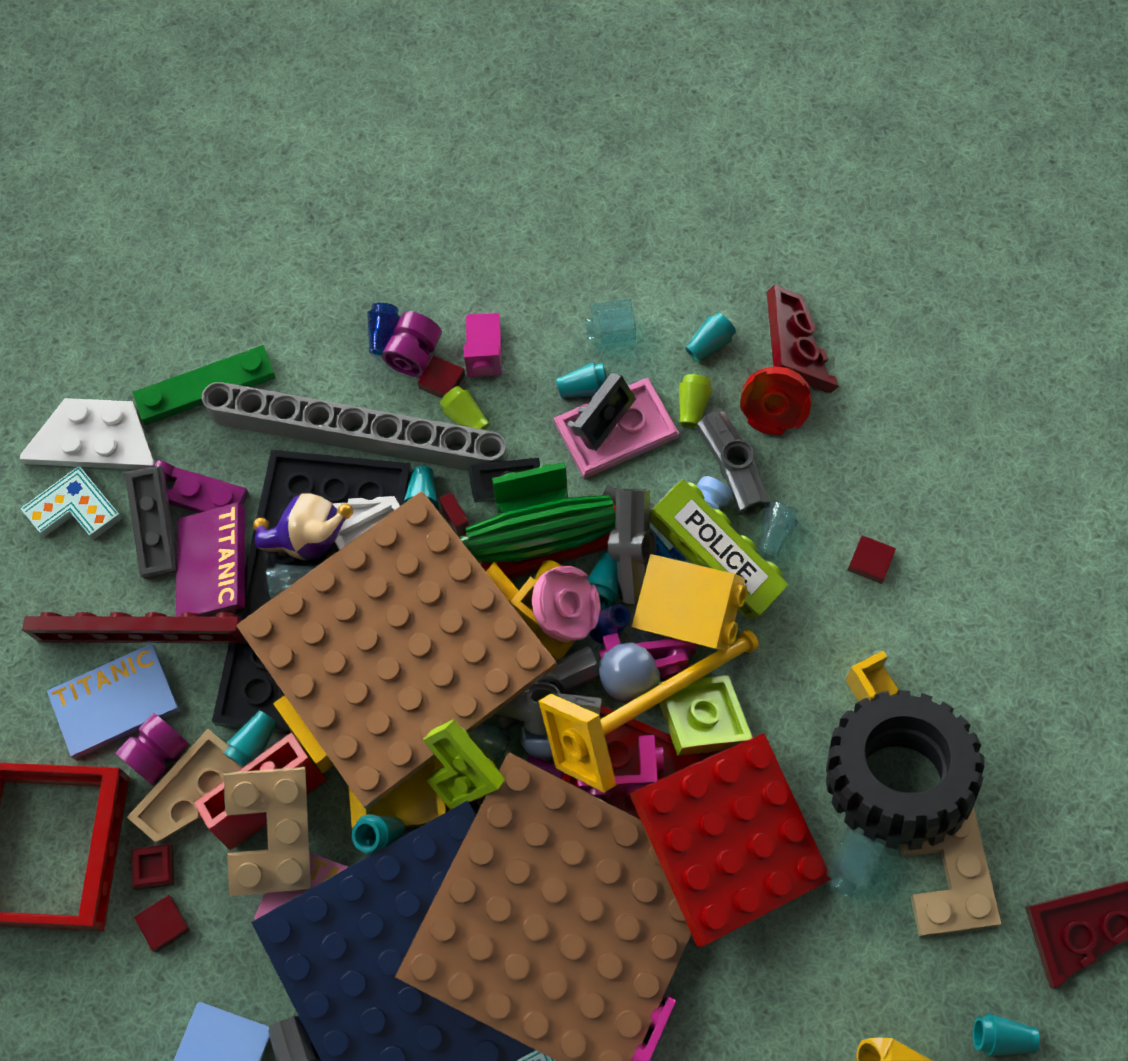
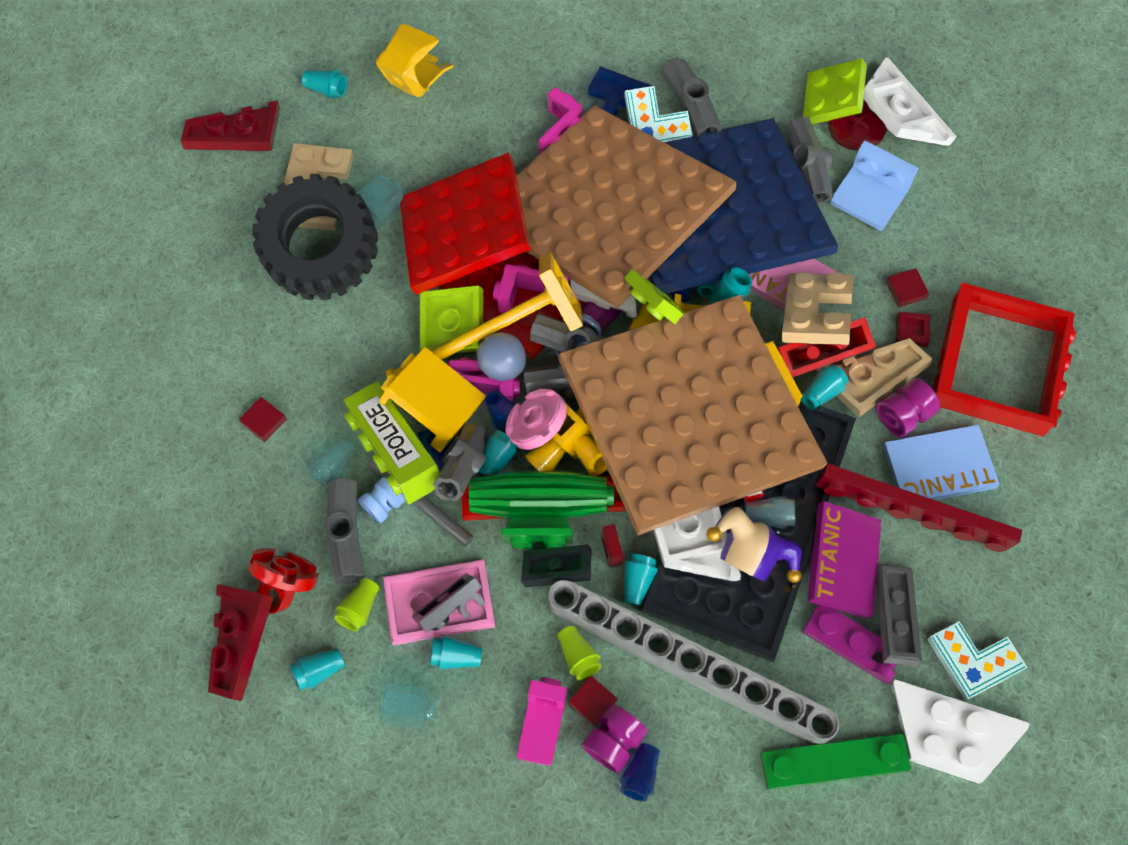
camera: 170 degrees left, 0 degrees up
(871, 678) = (309, 320): yellow panel -> none

